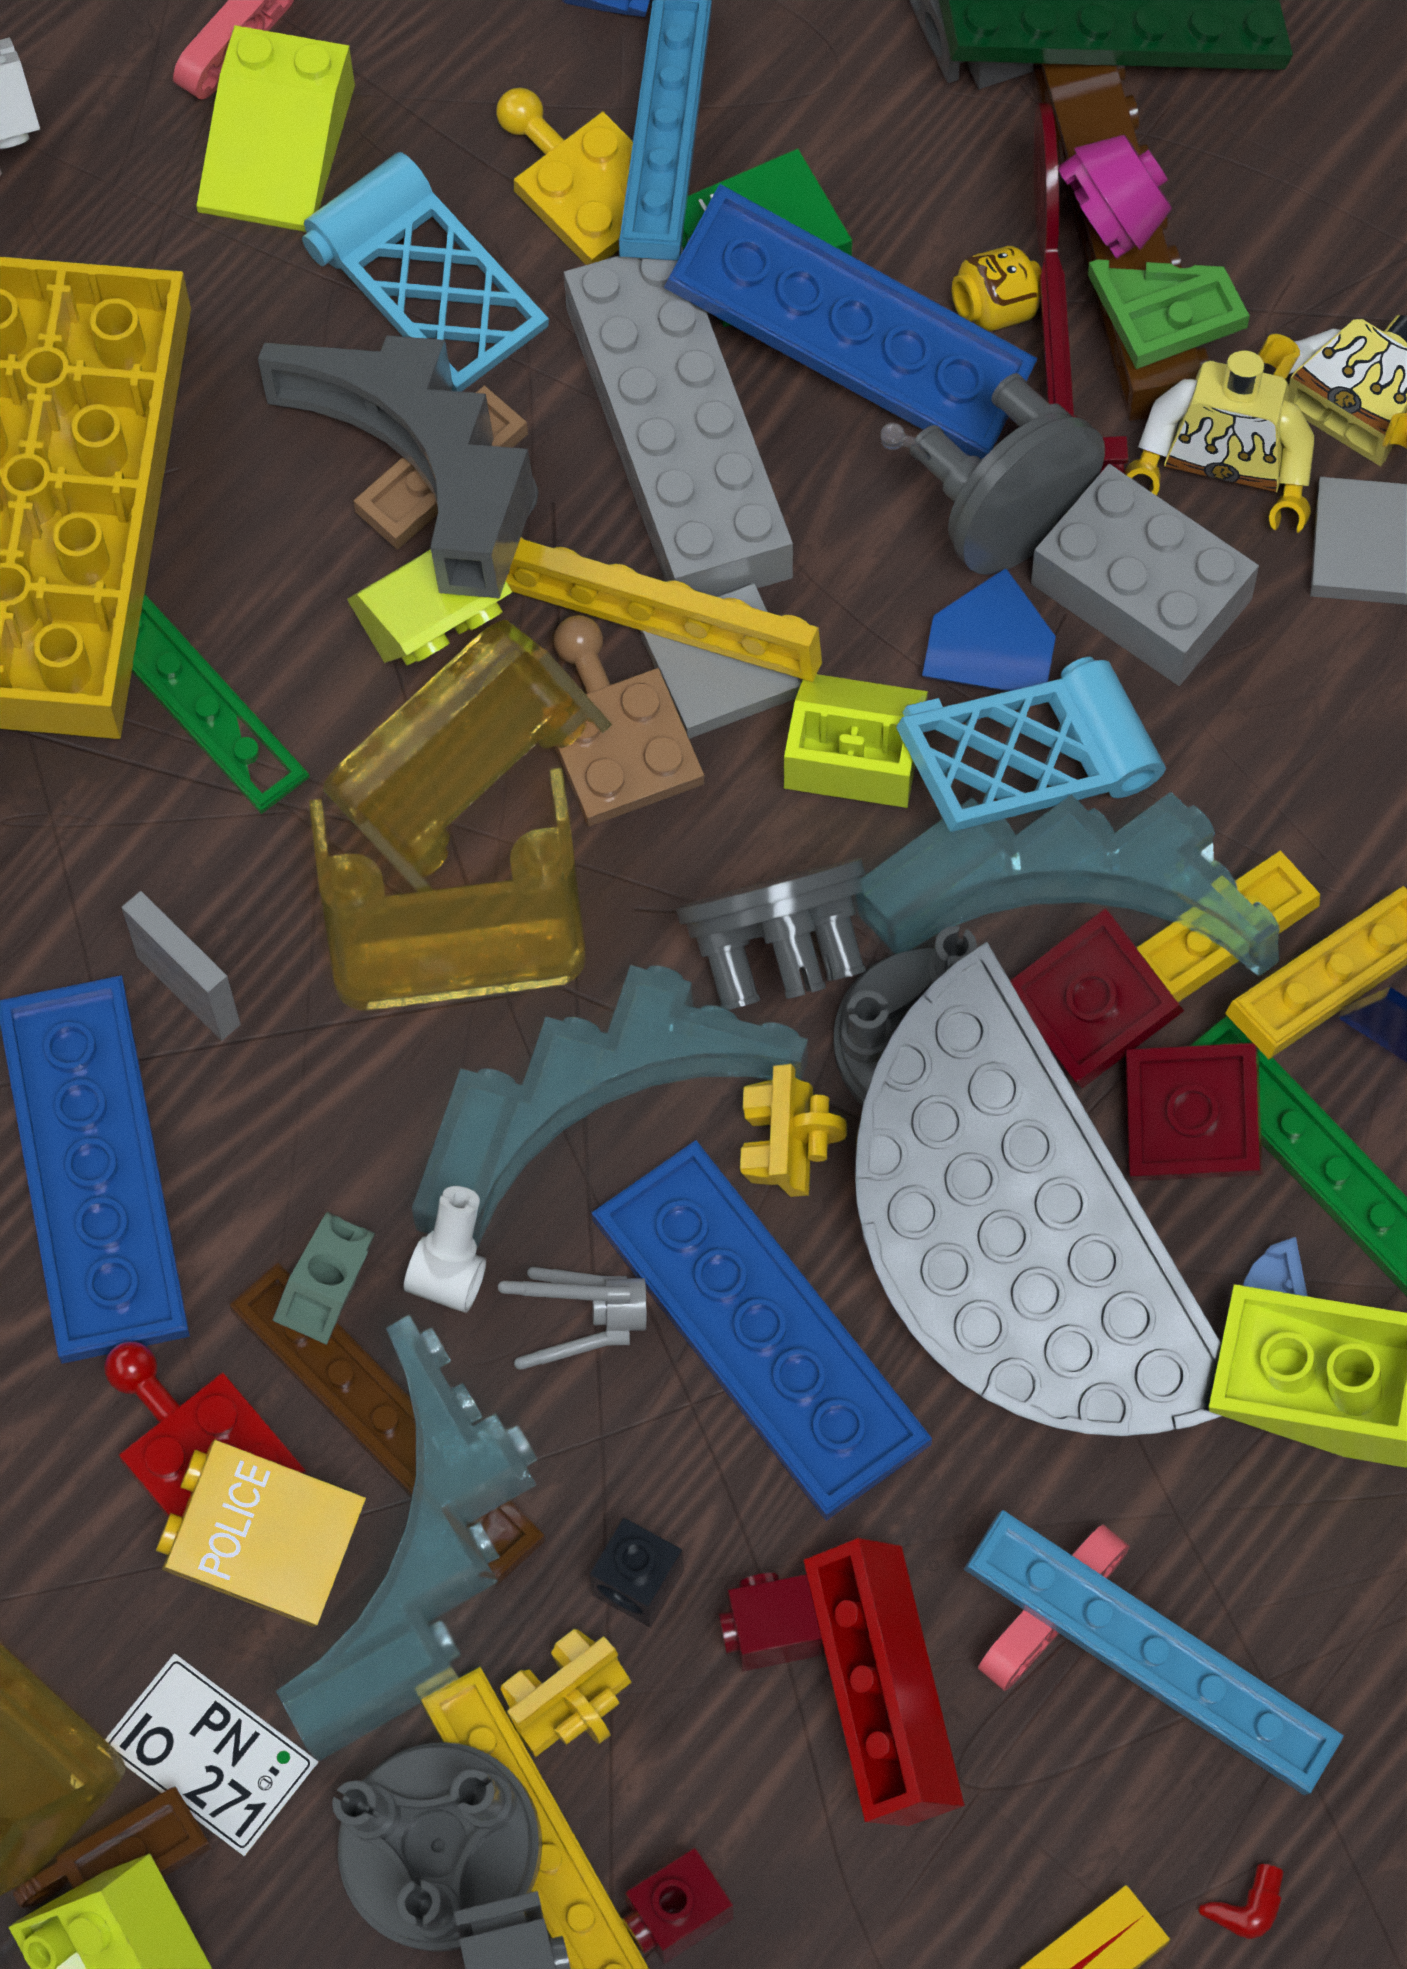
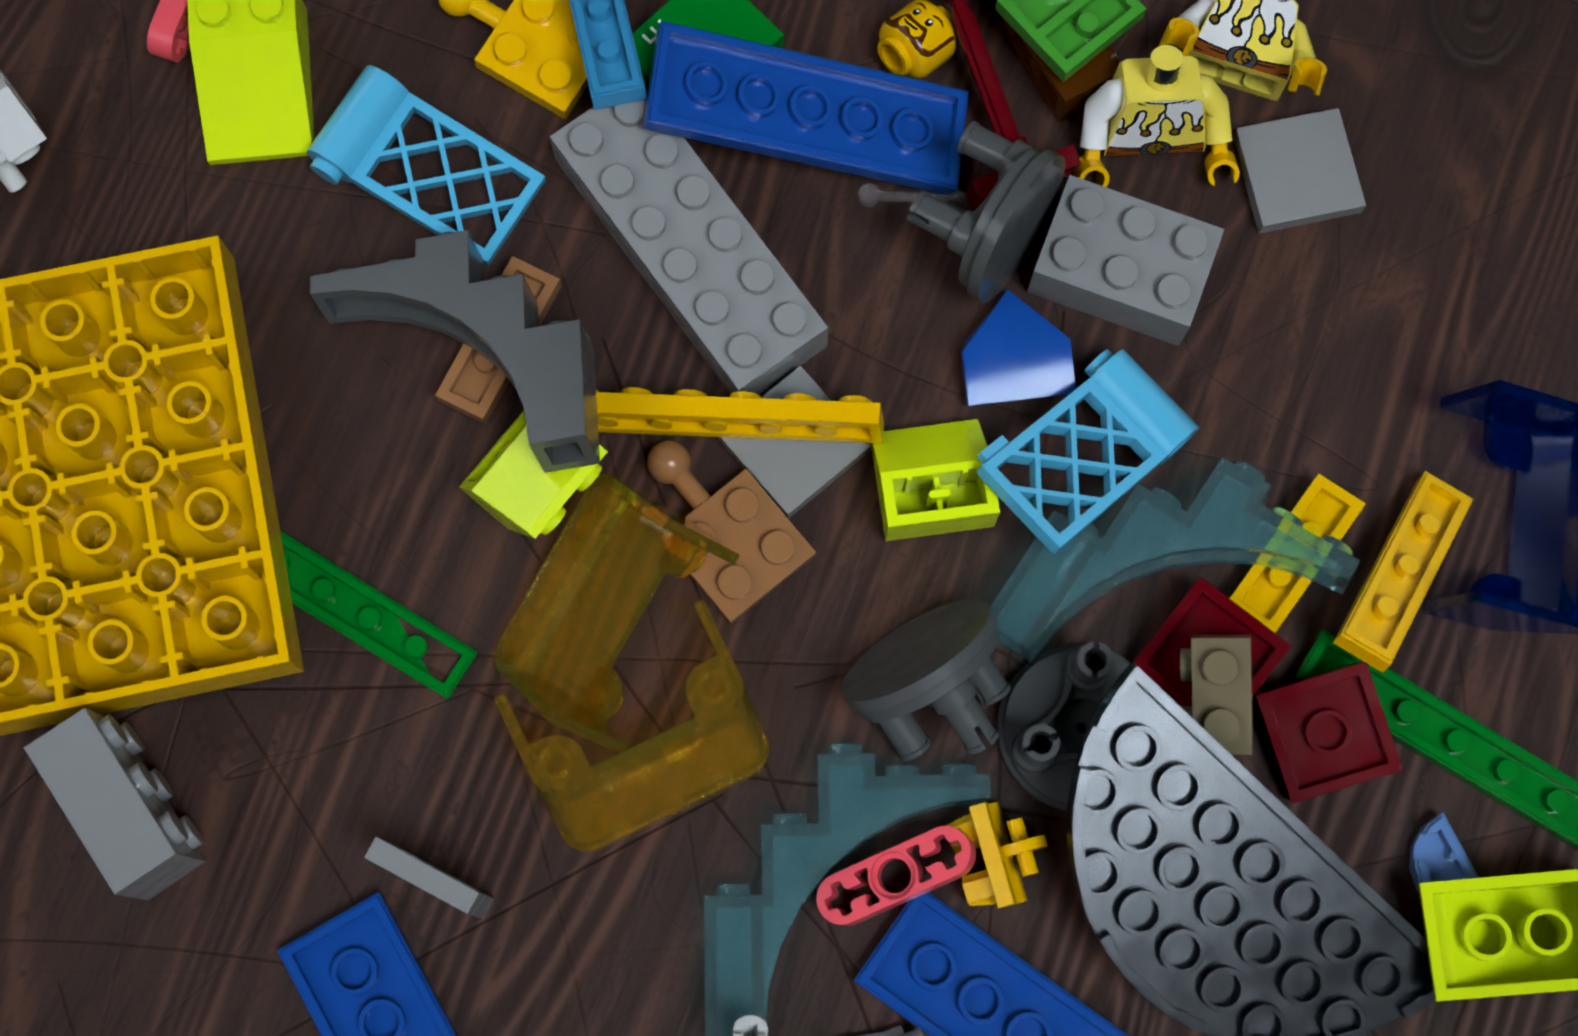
camera: 20 degrees left, 10 degrees up
(695, 1133) = (851, 877): none -> coral beam
(1088, 1019) = (1221, 688): none -> dark tan brick

